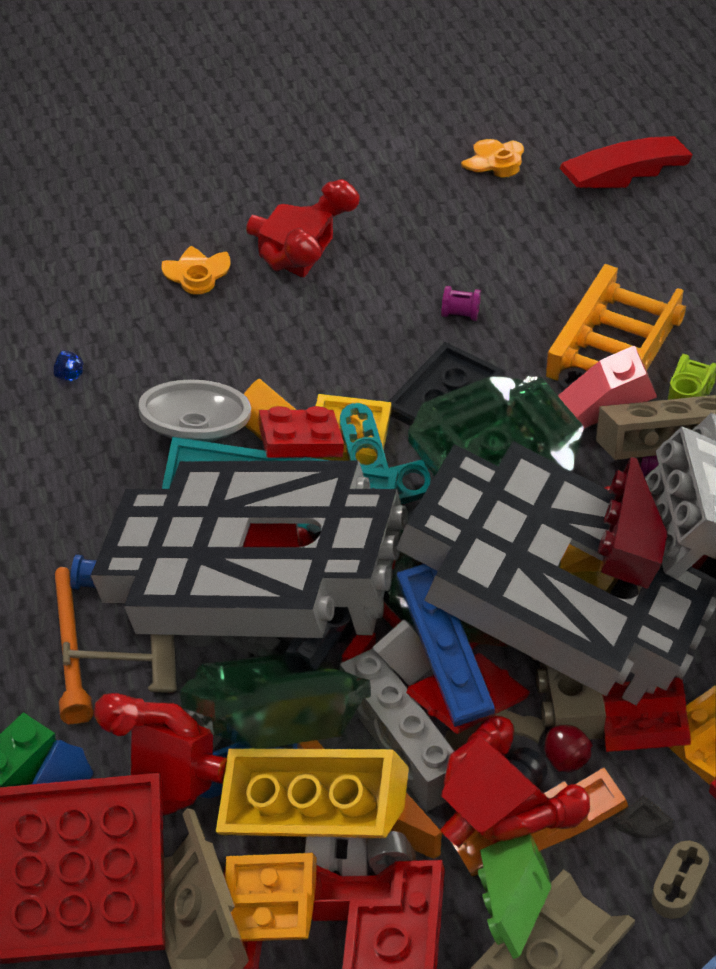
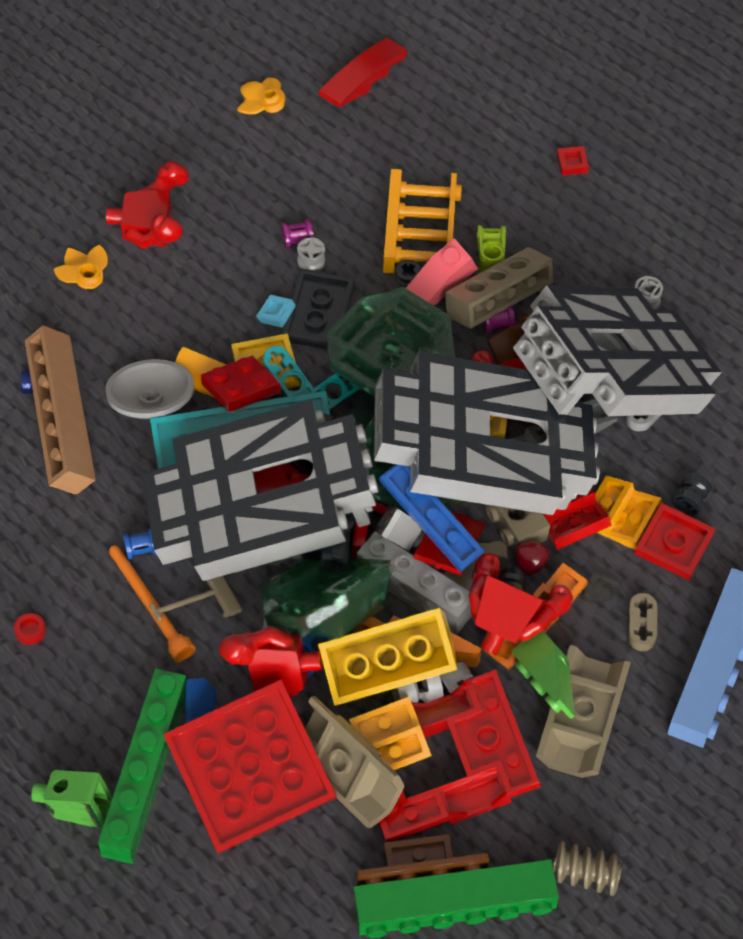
camera: 25 degrees left, 10 degrees up
(80, 404) = (59, 410): none -> medium nougat brick
(392, 376) = (276, 311): none -> medium azure tile
(465, 329) = (307, 250): none -> light grey wheel
(636, 532) = (530, 391): dark red slope -> none

